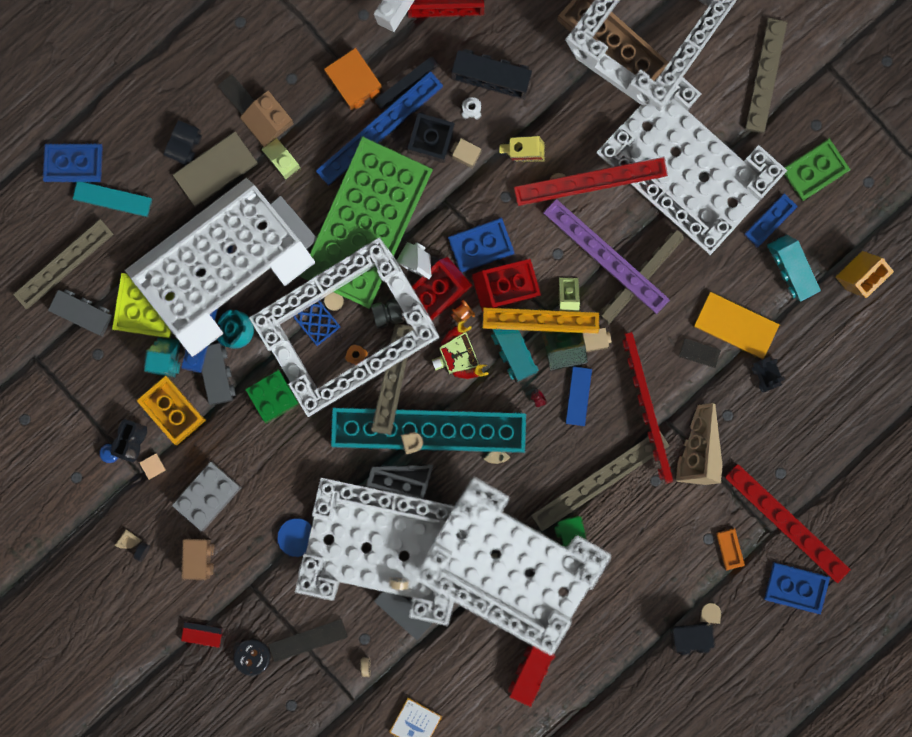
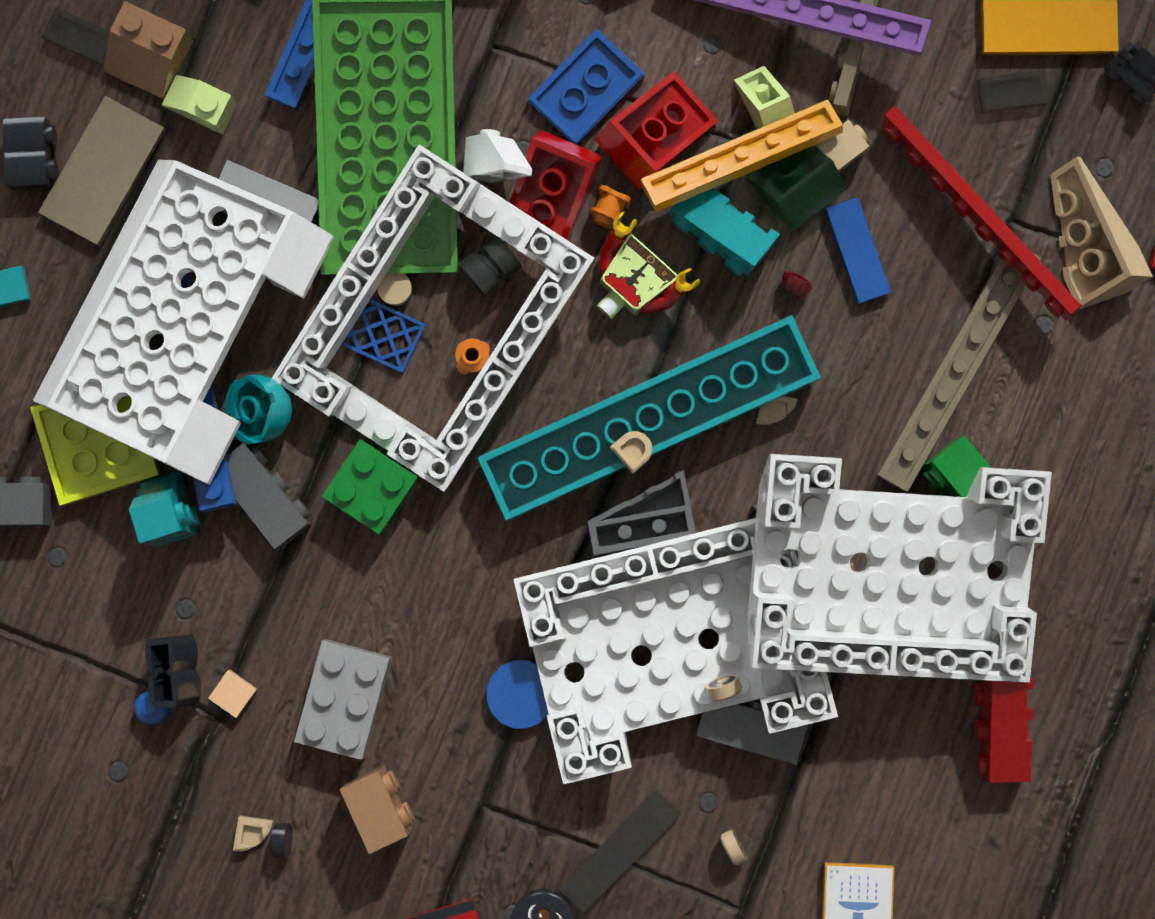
camera: 30 degrees left, 0 degrees up
(171, 410) = (218, 589): light orange brick -> none
(390, 388) = (555, 382): dark tan tile -> none

